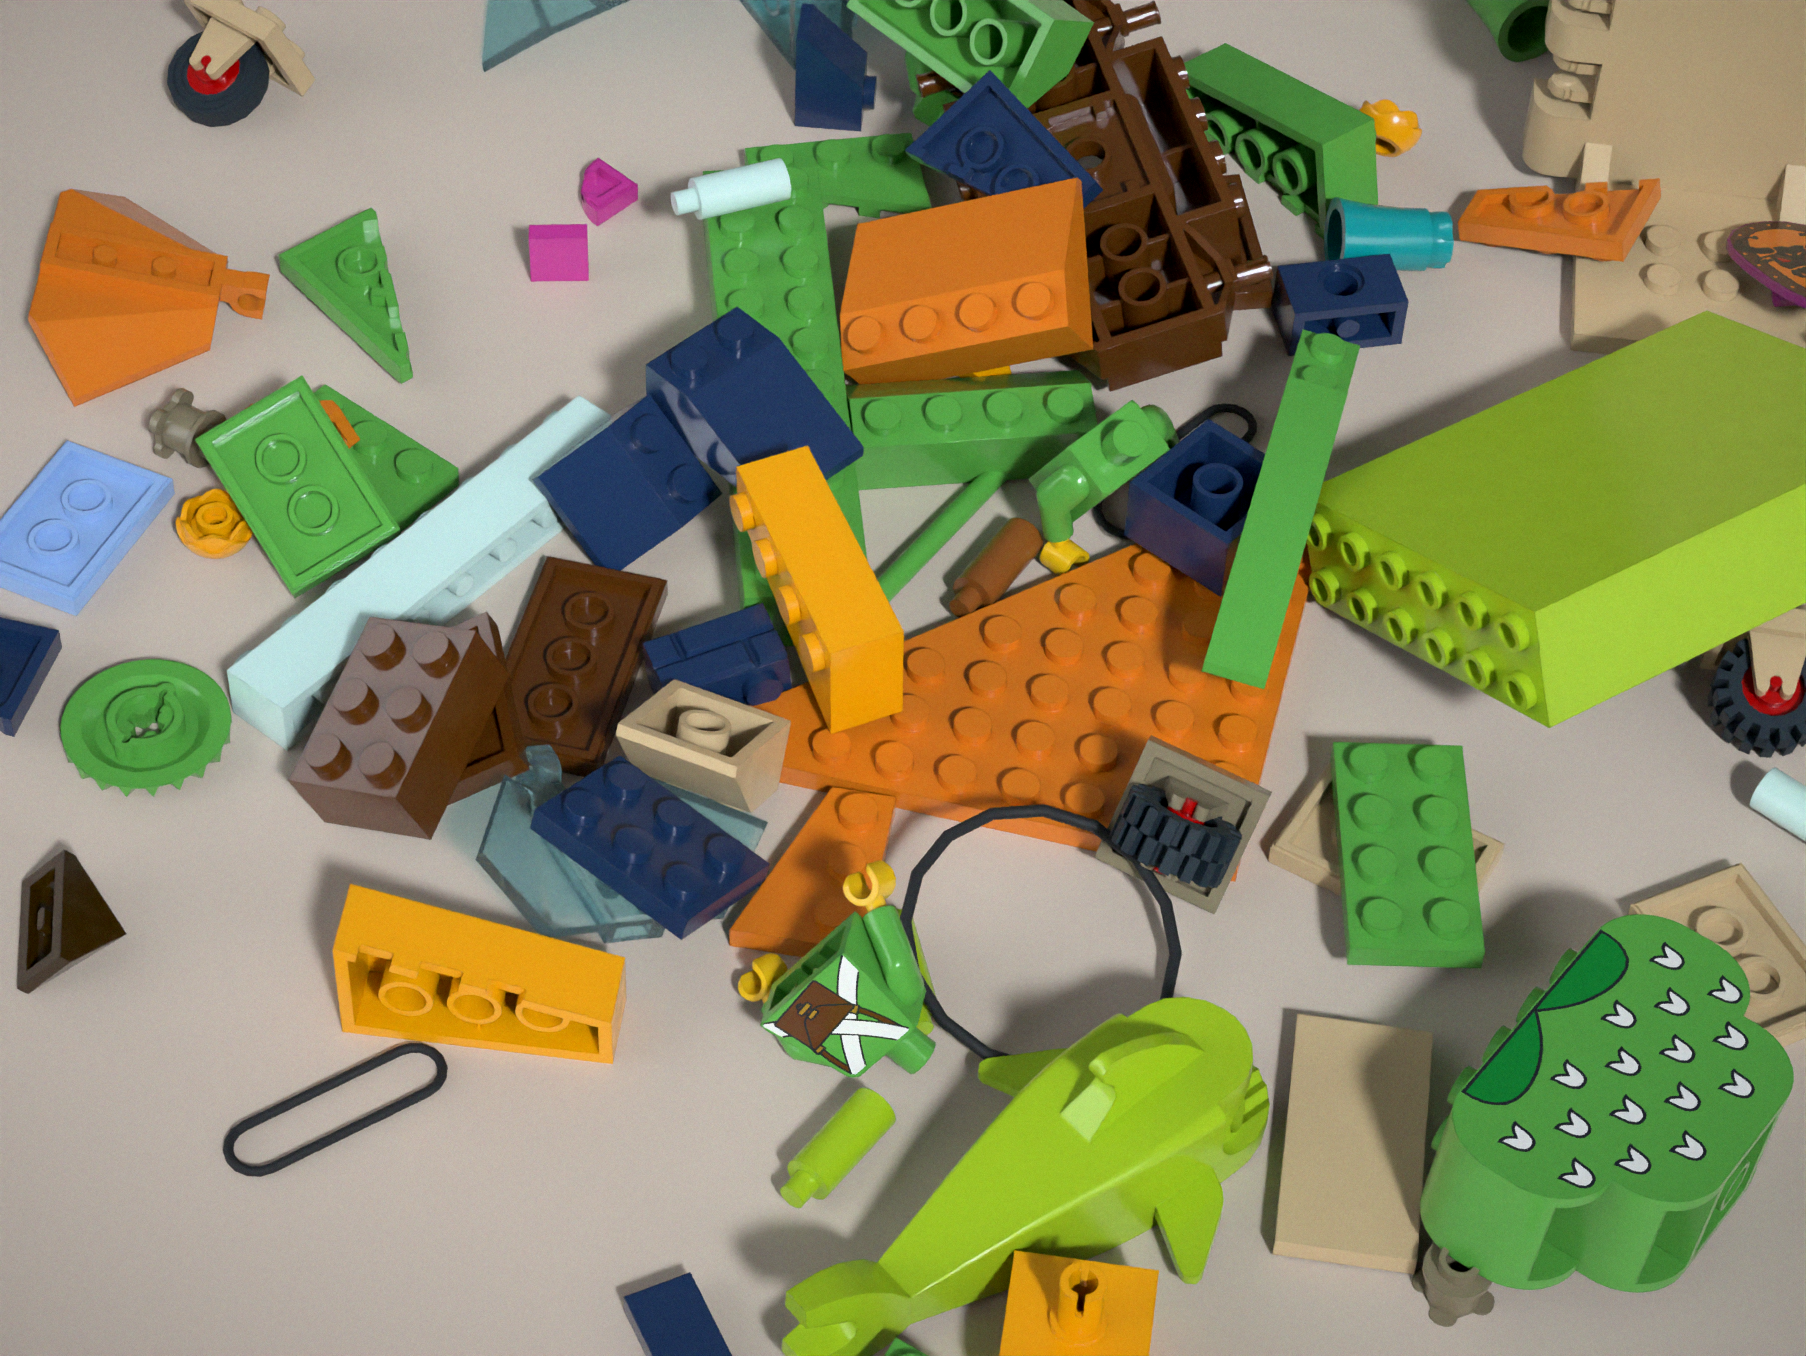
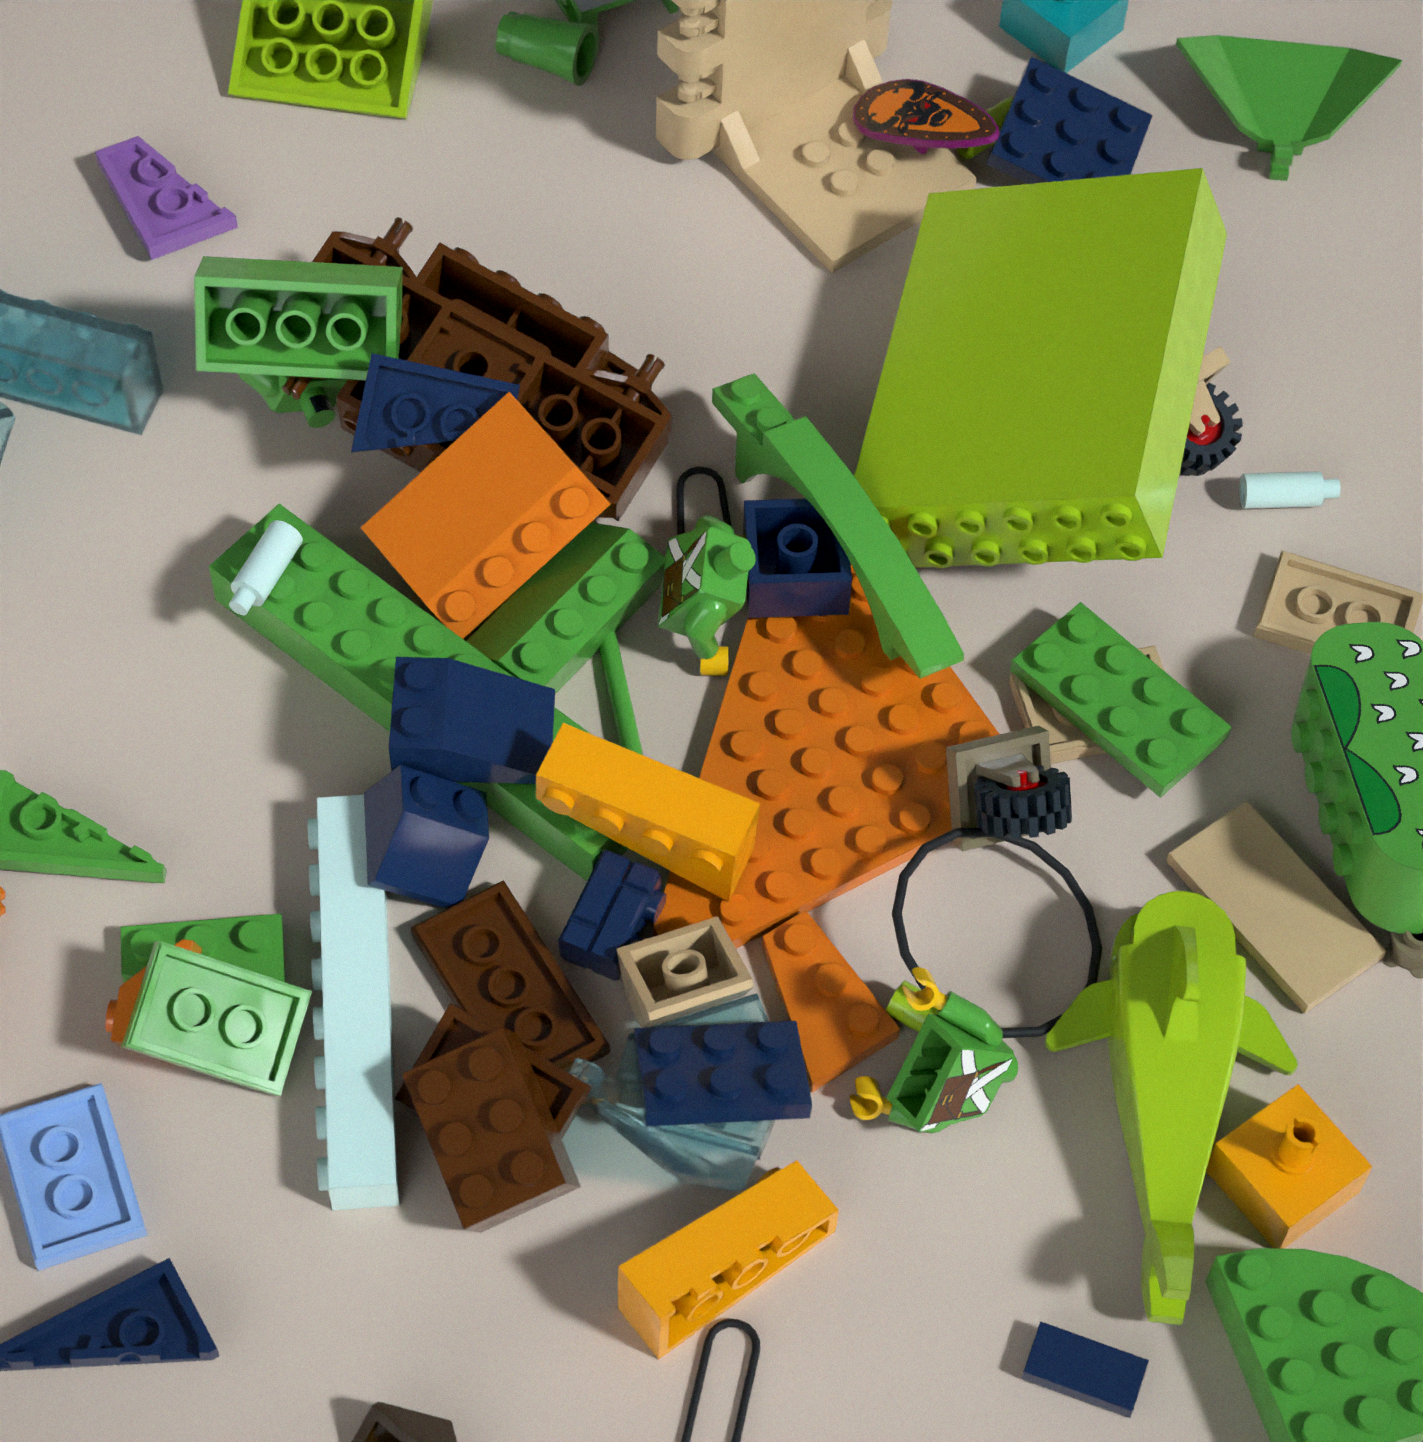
camera: 45 degrees left, 10 degrees up
(106, 709) = (321, 1240): bright green gear -> none
(179, 425) = (76, 1038): dark tan brick -> none
(213, 525) = (167, 1108): light orange plate -> none
(559, 252) = (162, 700): dark pink tile -> none
(606, 192) = (128, 628): dark pink tile -> none
(830, 75) = (194, 427): dark blue slope -> none
(837, 1147) = (1027, 1166): lime cylinder -> none
(858, 171) = (282, 472): bright green wing -> none
(996, 566) = (686, 702): dark orange cylinder -> none
(1286, 132) = (540, 244): bright green wedge -> none
(1342, 297) = (690, 342): dark blue brick -> none
(1395, 129) = (574, 196): light orange plate -> none
(1409, 235) = (660, 280): teal plant -> none
(1579, 224) = (753, 185): orange wing -> none

